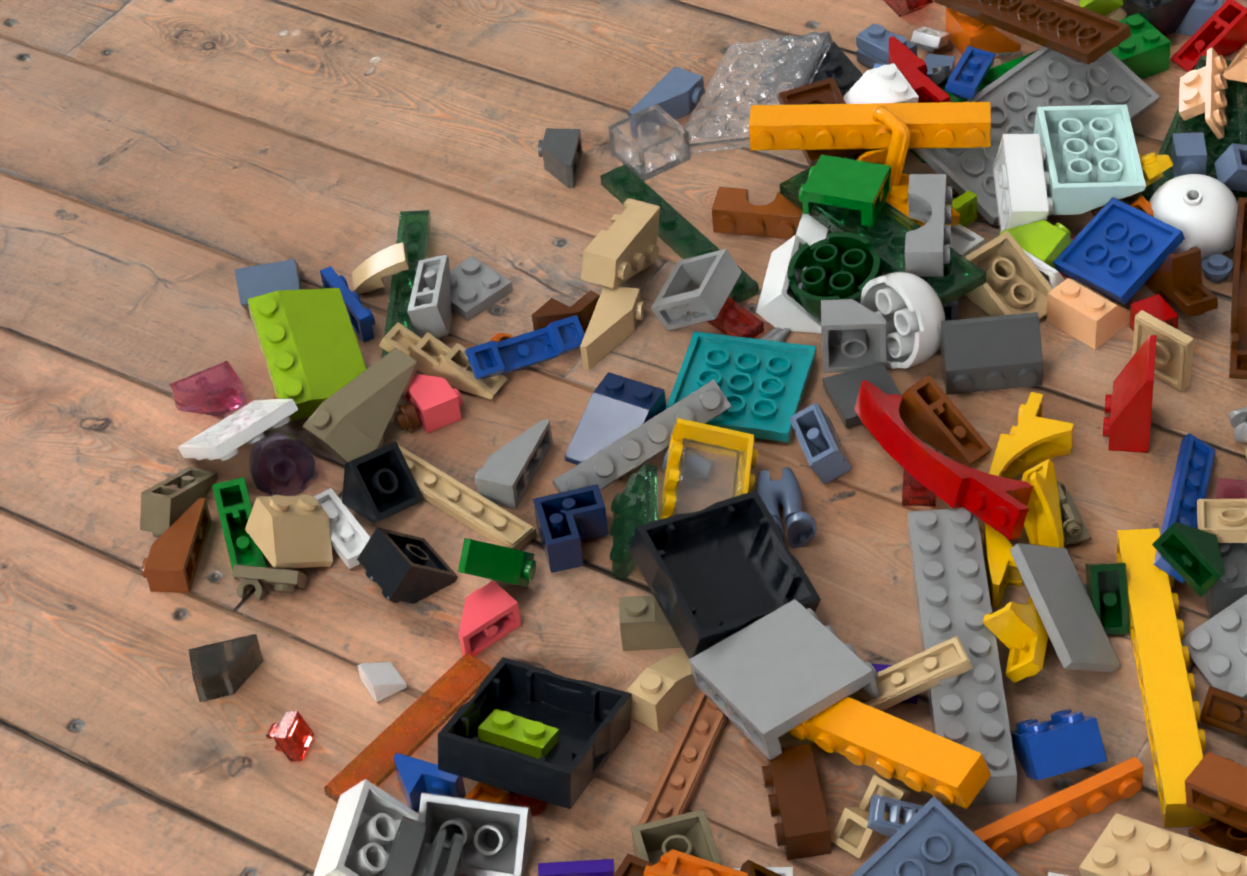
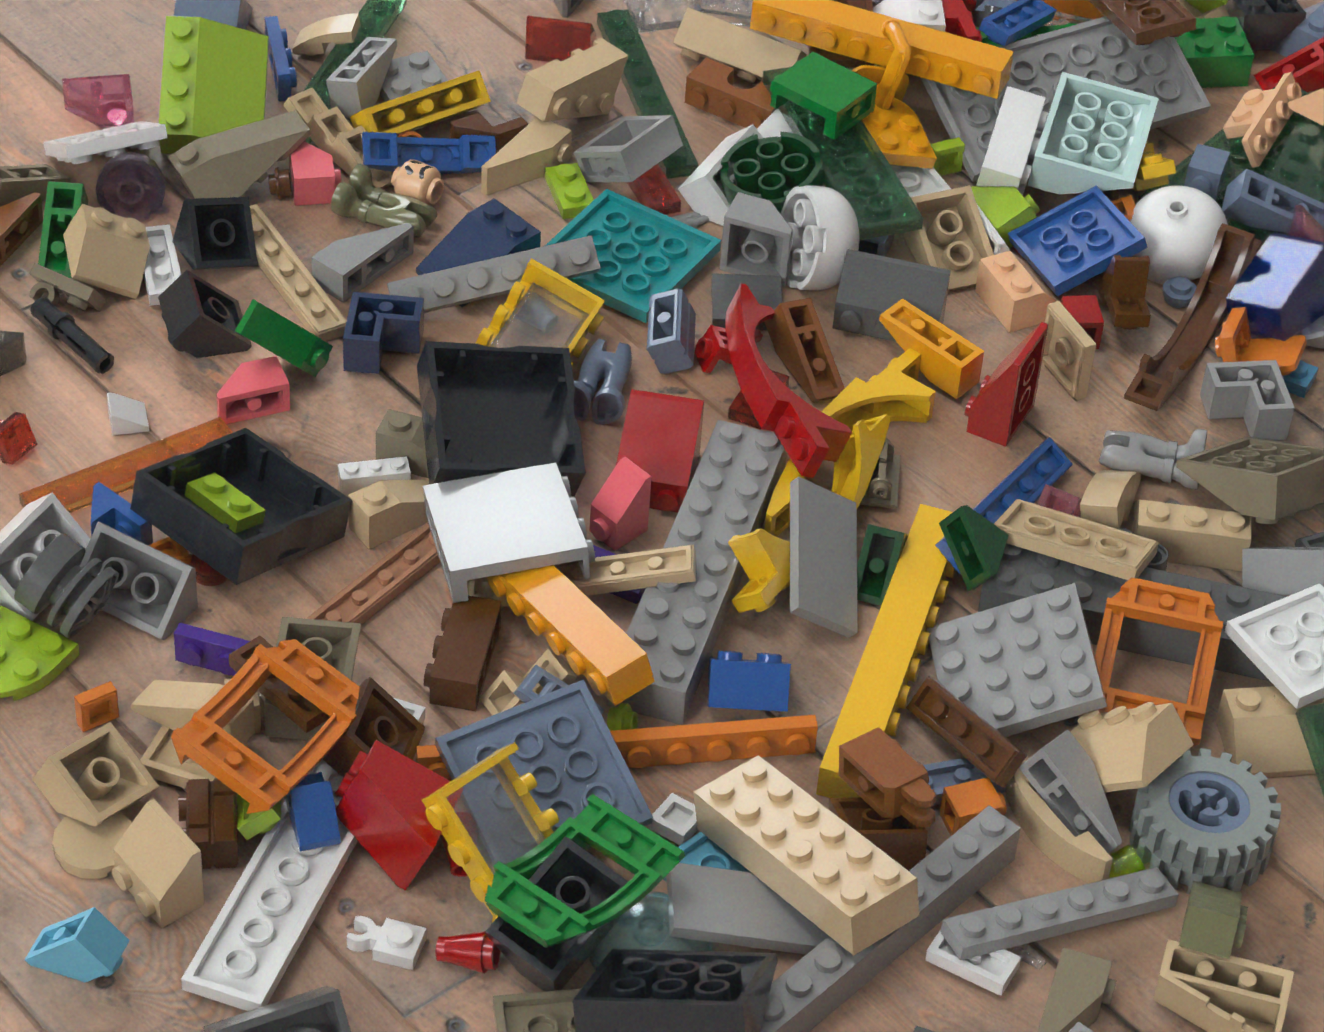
camera: 10 degrees right, 0 degrees up
(283, 615) = (62, 326): none -> black pin
(500, 308) = (425, 106): none -> yellow brick
(507, 411) = (378, 206): none -> olive piece
(528, 379) = (418, 181): none -> light nougat head
(582, 211) = (556, 38): none -> clear red slope
(629, 662) = (360, 474): none -> white piece
(631, 509) = (449, 329): clear green plate -> none
(659, 342) = (568, 189): none -> lime plate
(739, 170) = (732, 46): none -> tan slope
(861, 447) = (712, 348): none -> red bracket
(865, 616) = (621, 505): none -> coral slope
(870, 558) = (664, 441): none -> red slope
(926, 245) = (872, 174): light grey arch -> none
(970, 817) = (622, 718): none -> lime plate
(1066, 390) = (945, 356): none -> light orange slope

